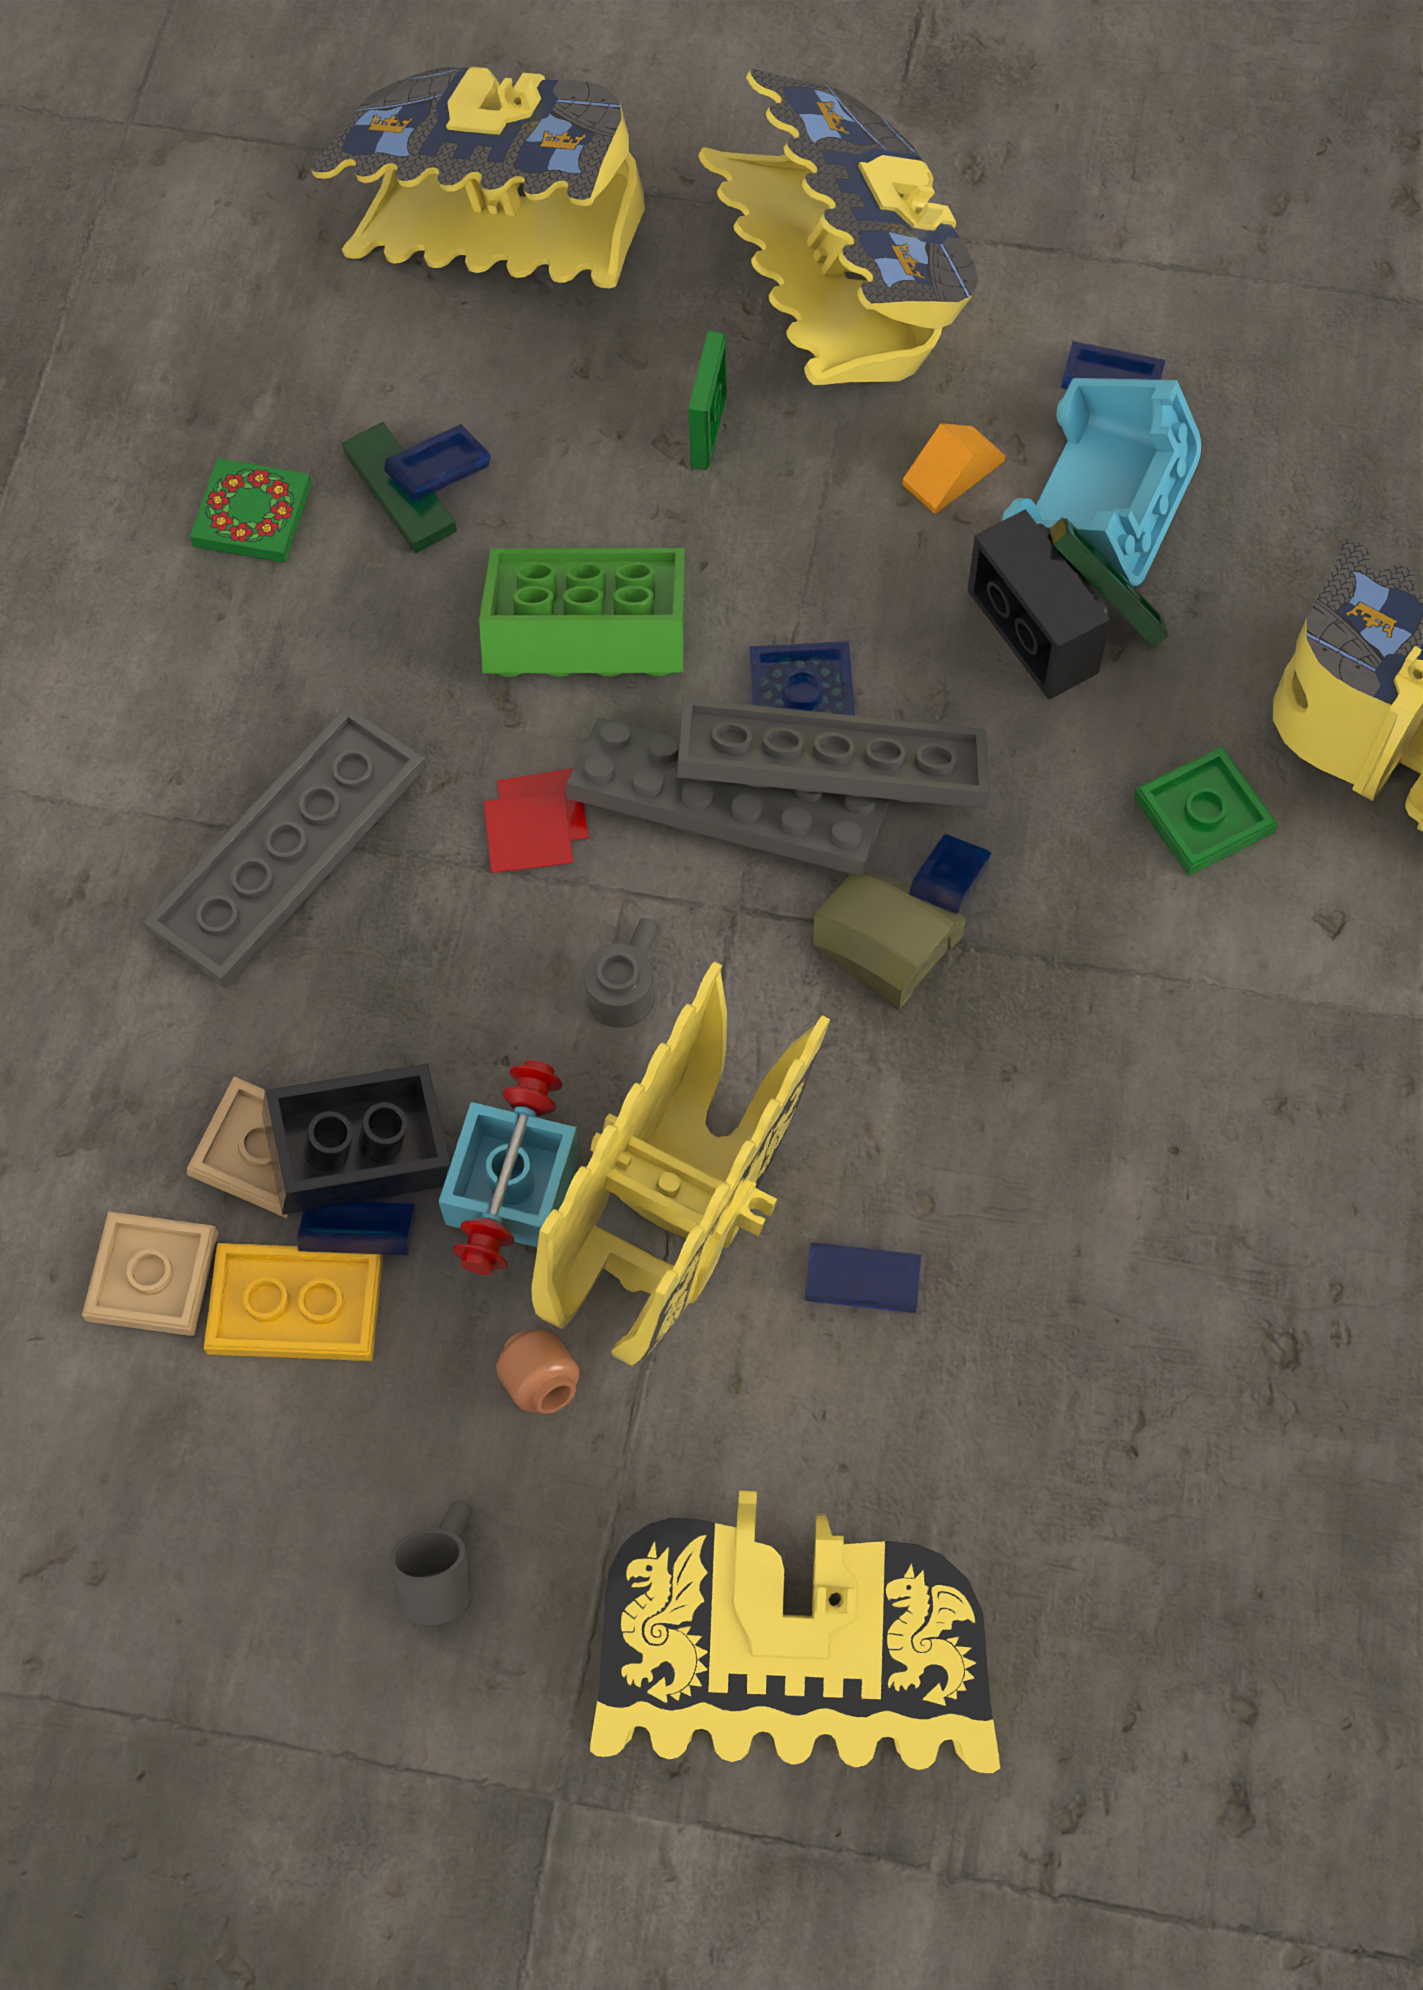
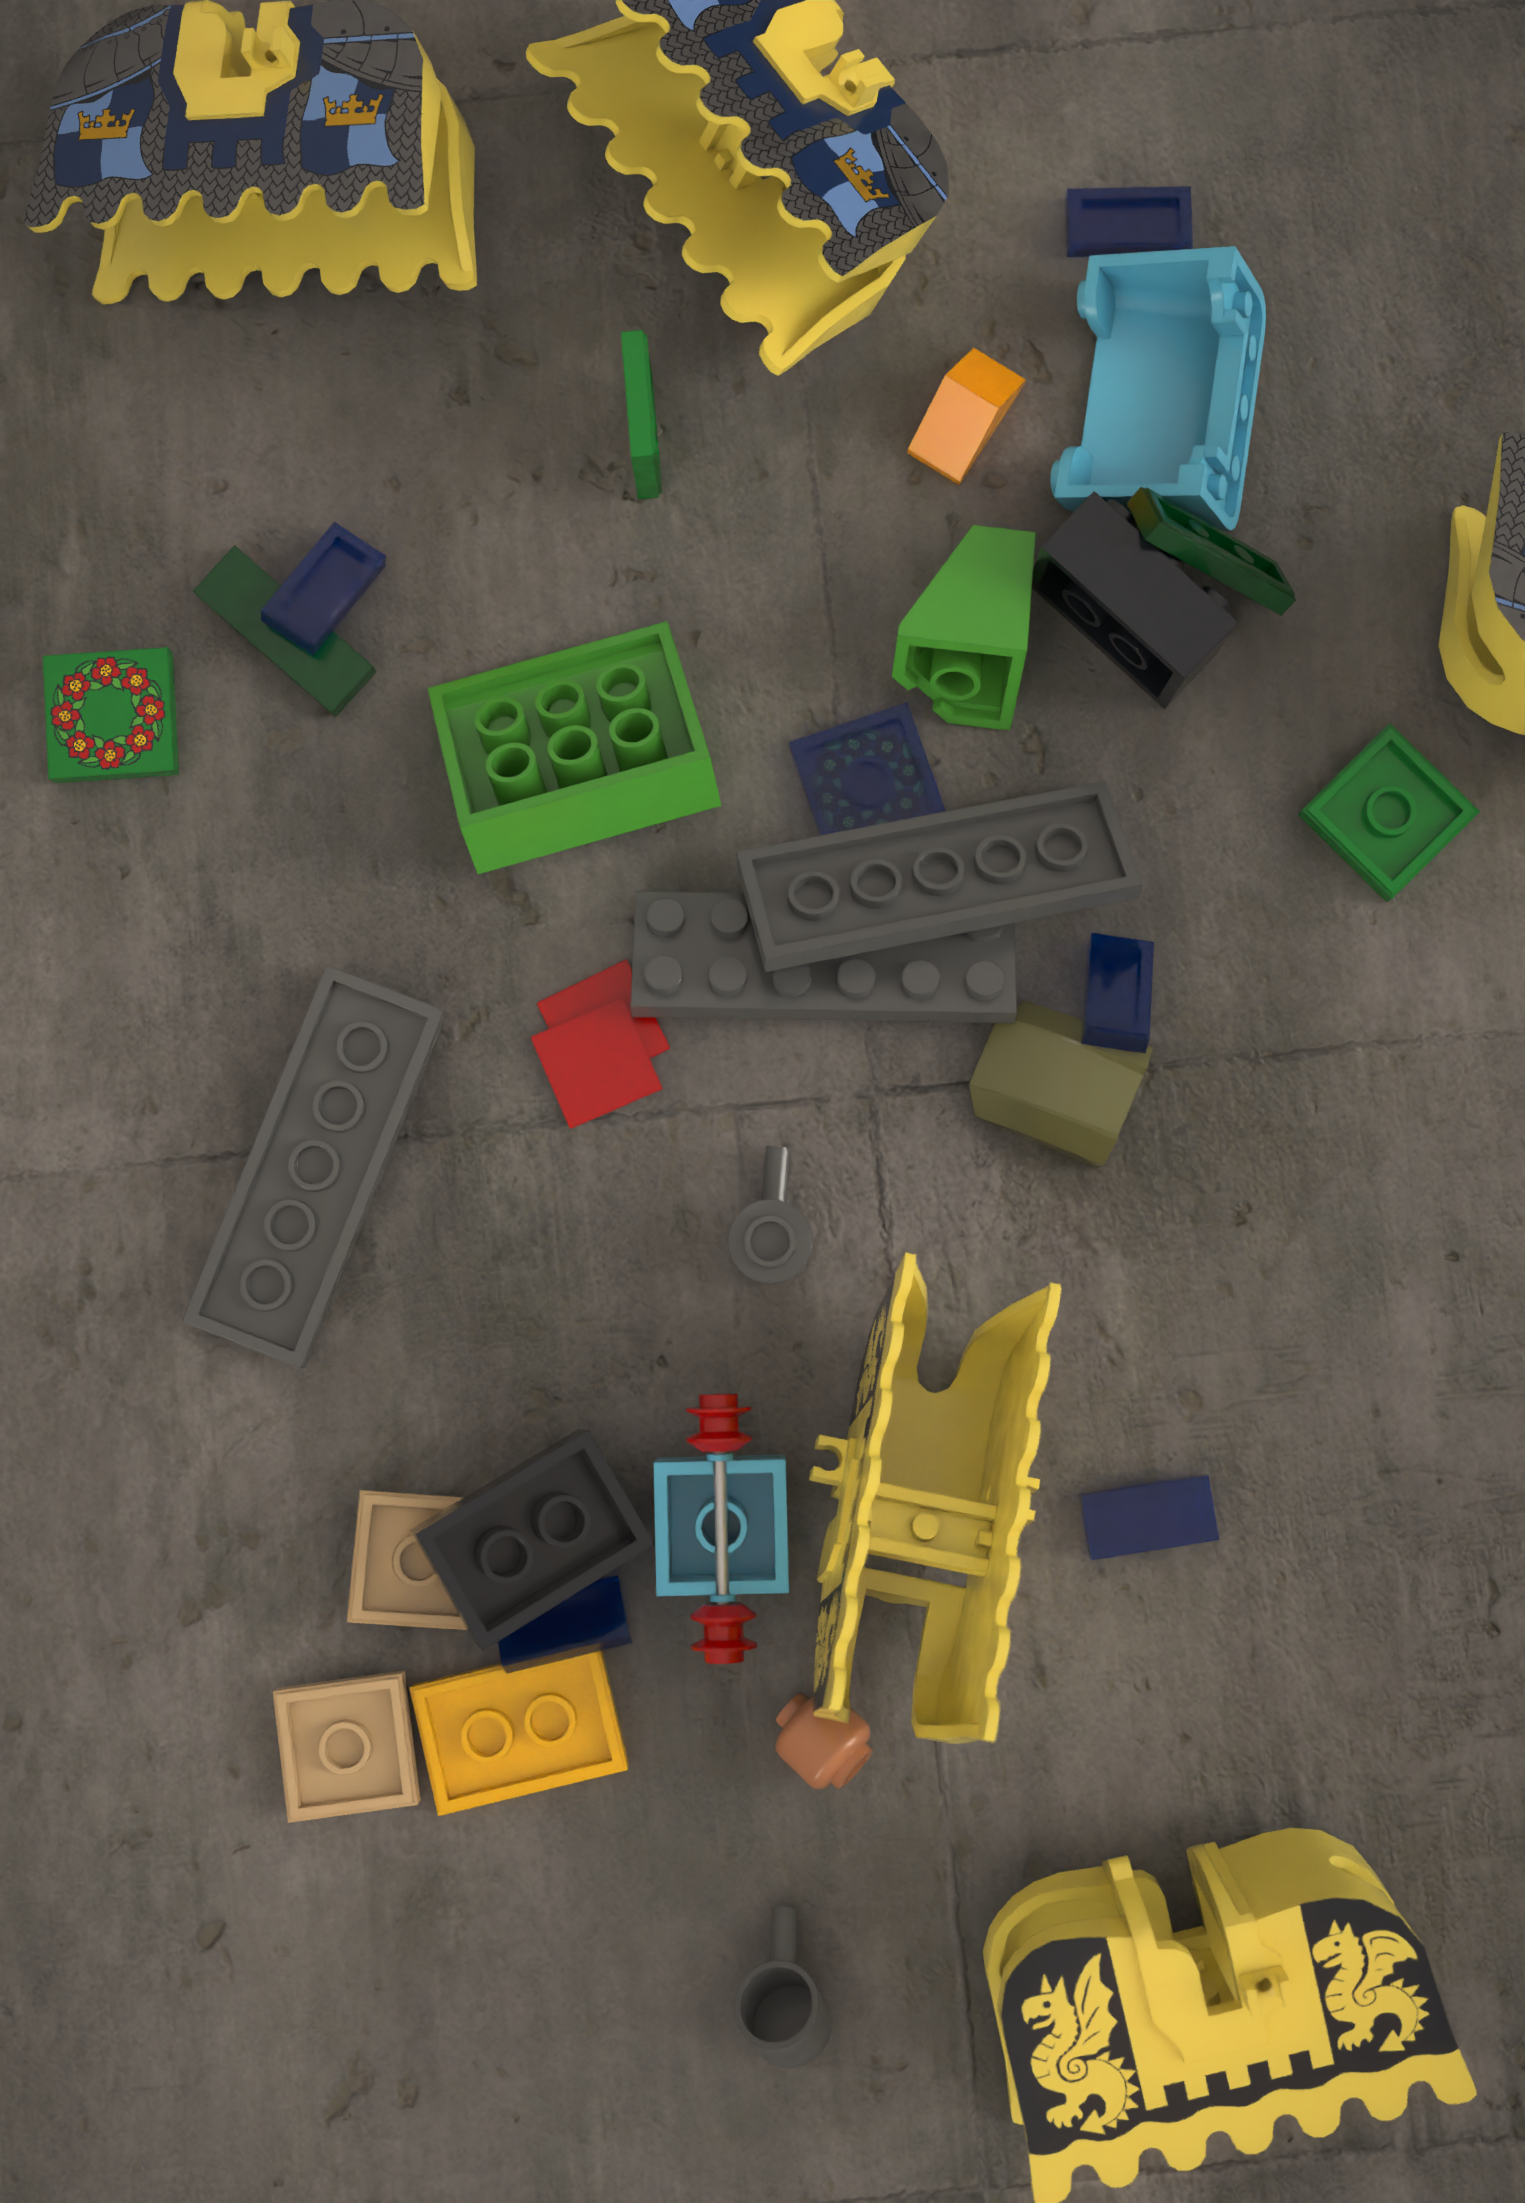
camera: 15 degrees left, 20 degrees up
(908, 599) = (971, 629): none -> bright green slope

